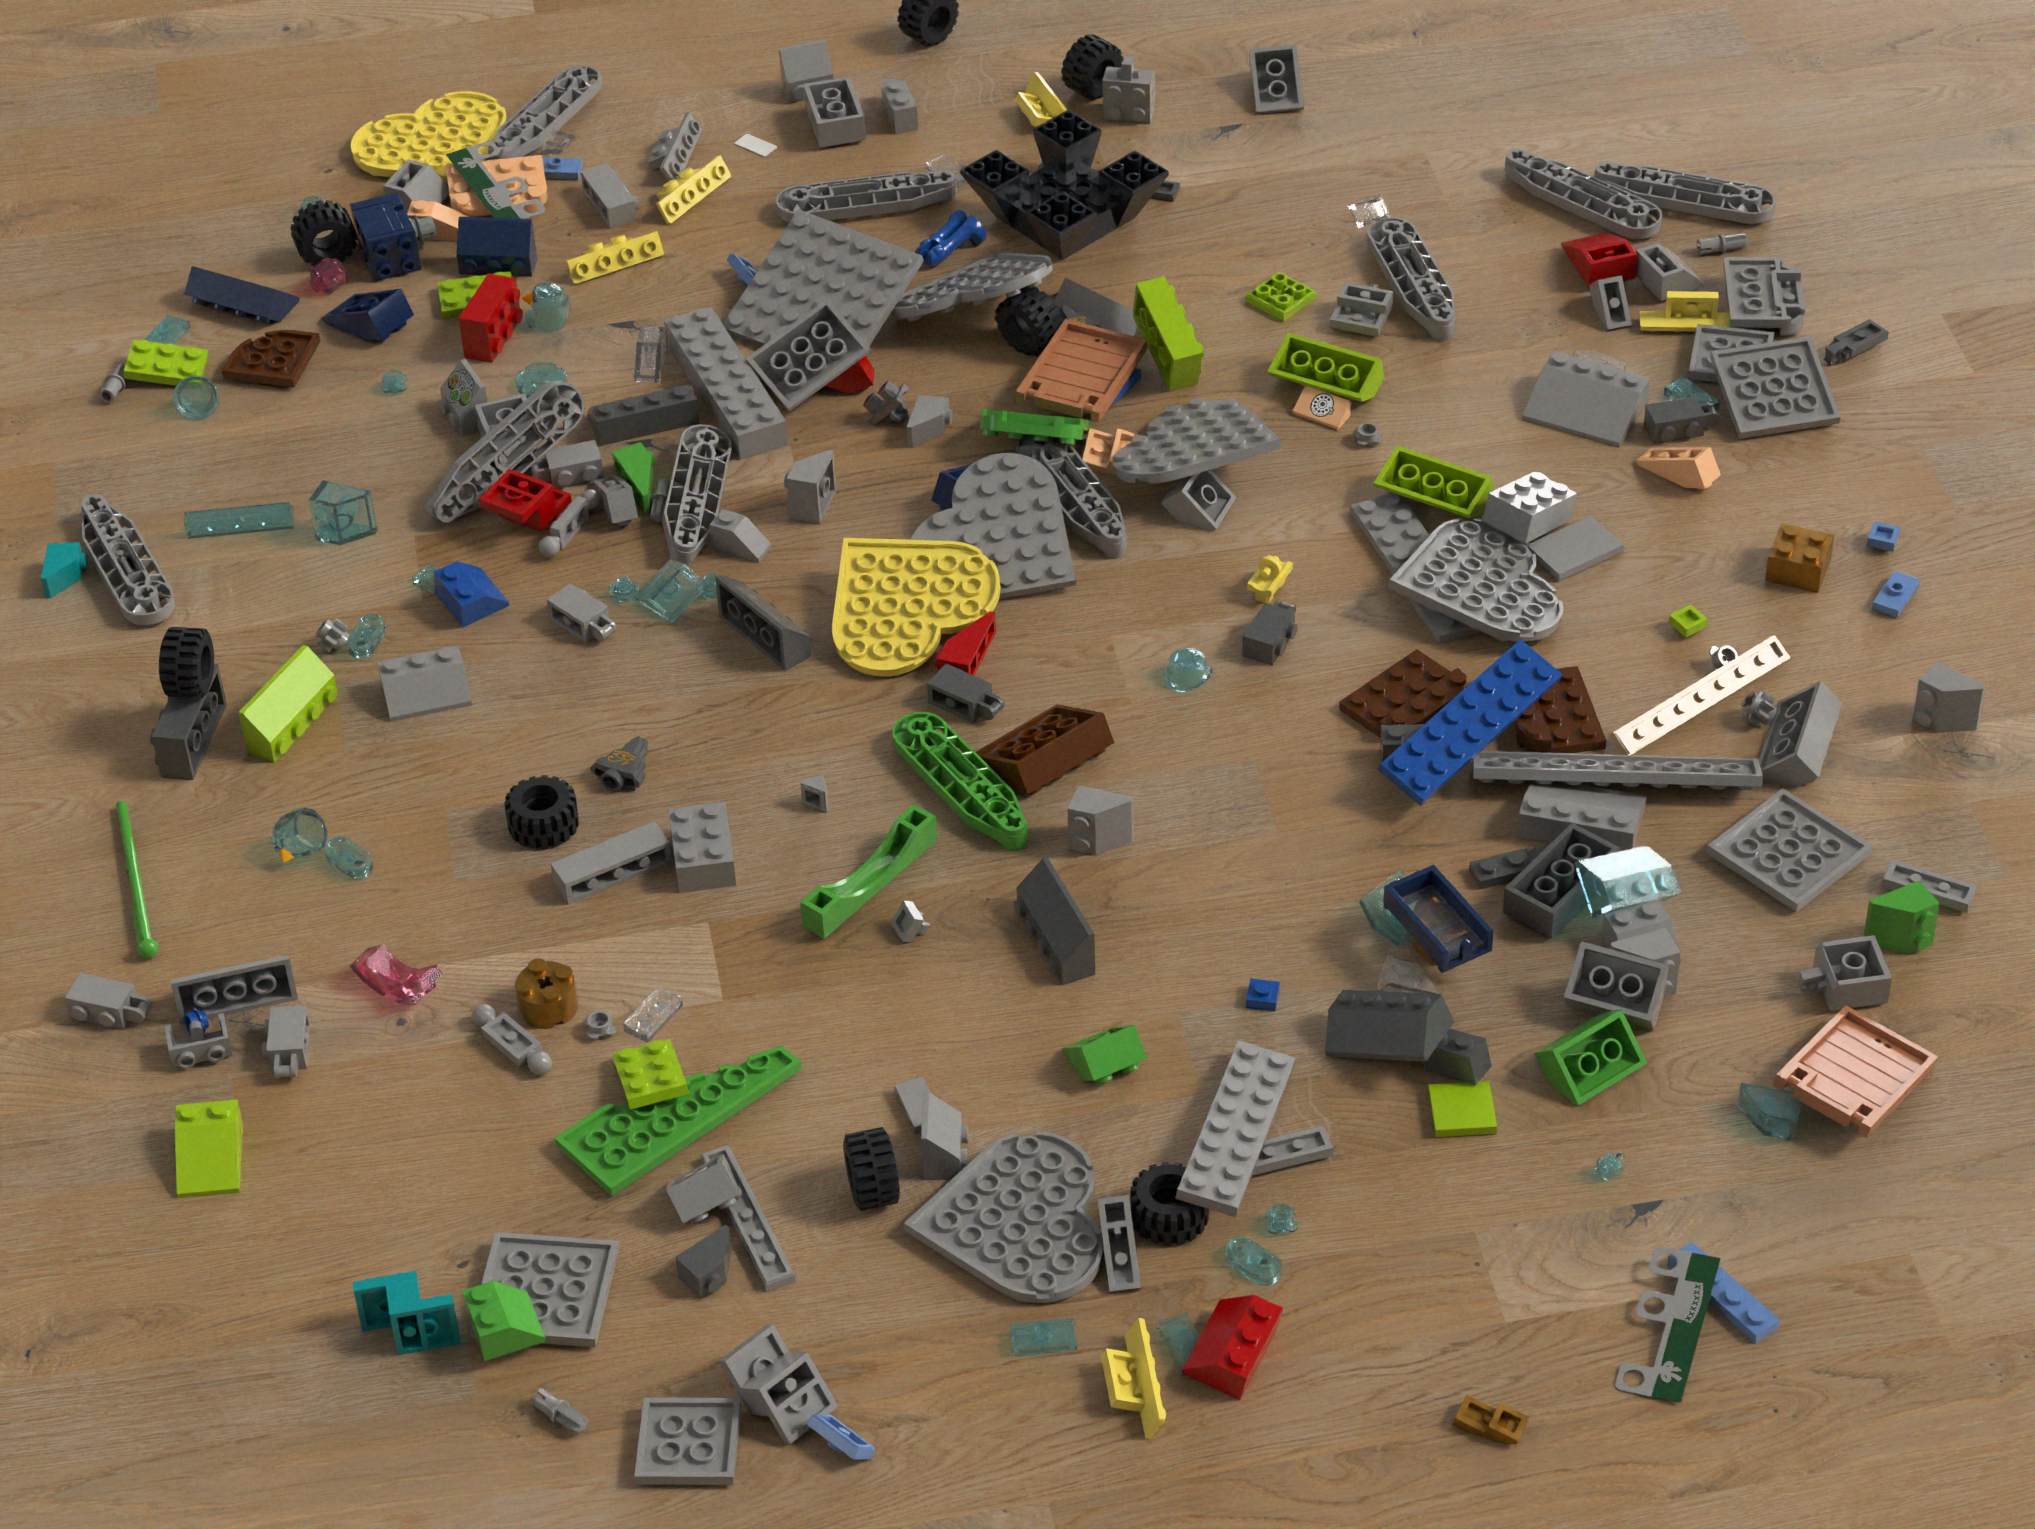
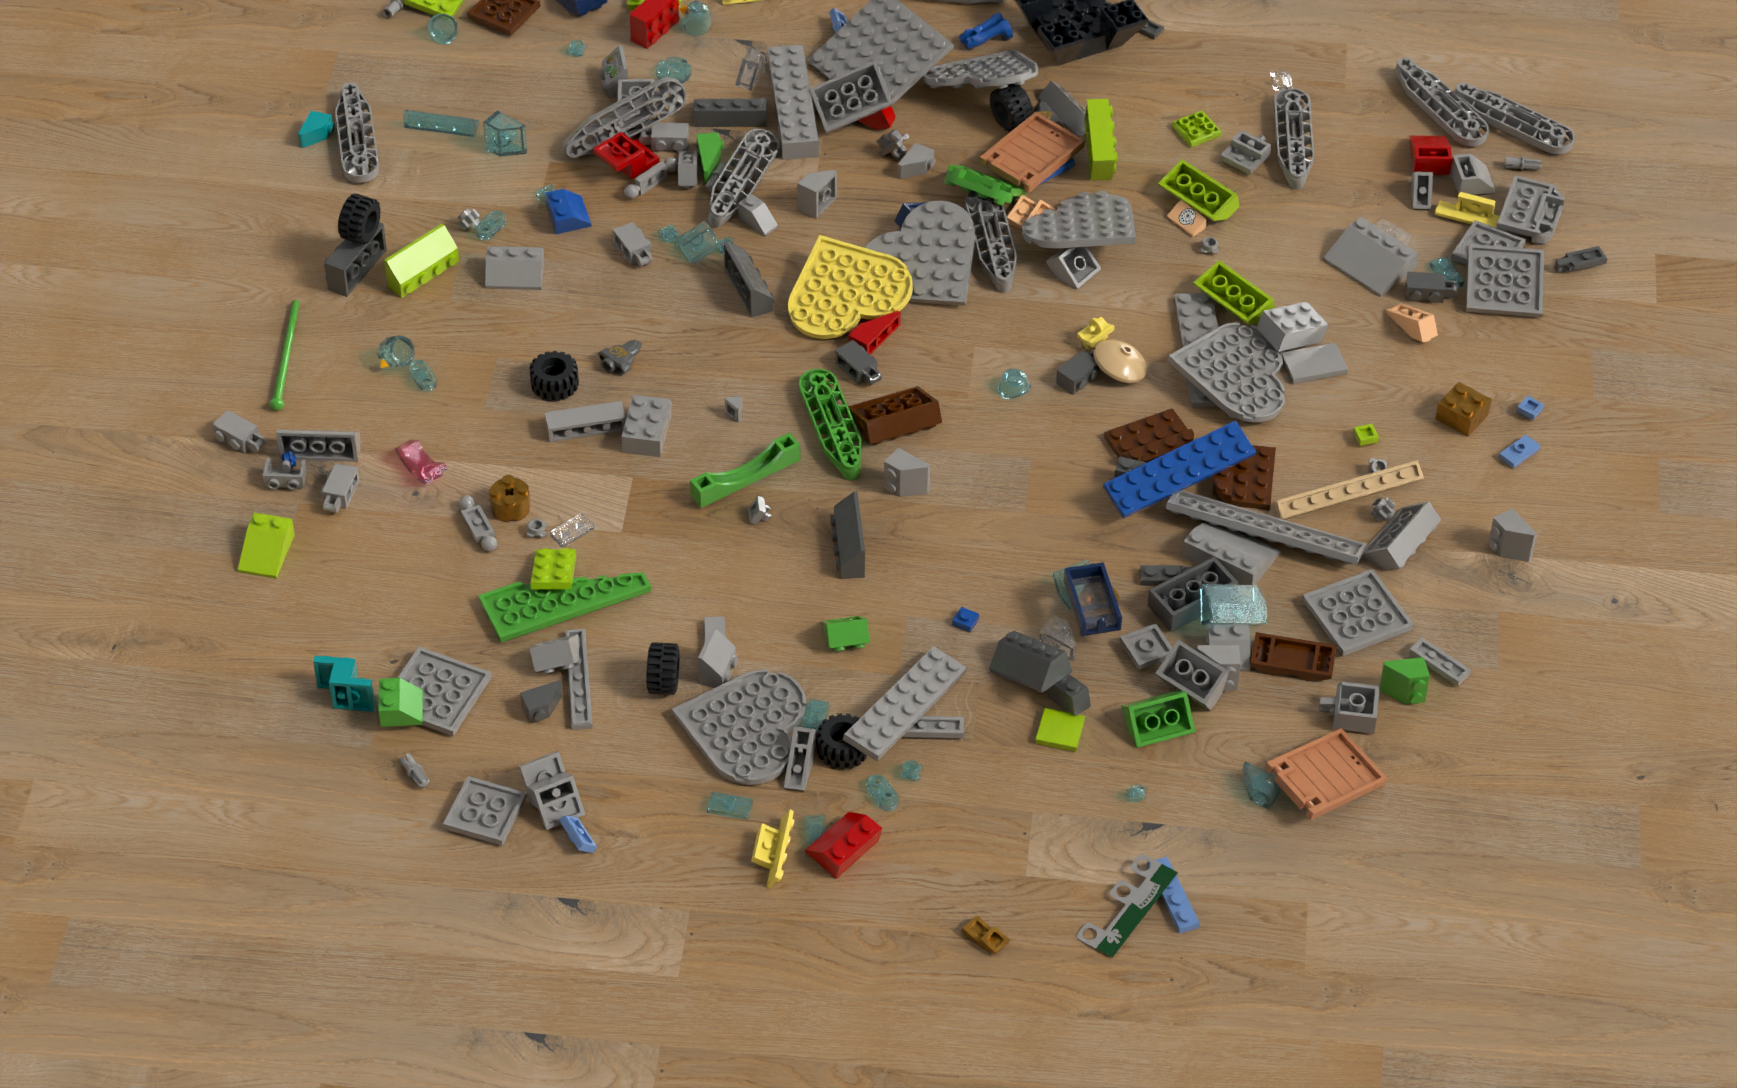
camera: 15 degrees right, 5 degrees up
(1111, 1176) = (815, 713): none -> clear light blue plate
(1320, 604) = (1120, 361): none -> tan dish
(1530, 966) = (1146, 646): none -> light grey plate
(1734, 929) = (1293, 656): none -> reddish brown slope

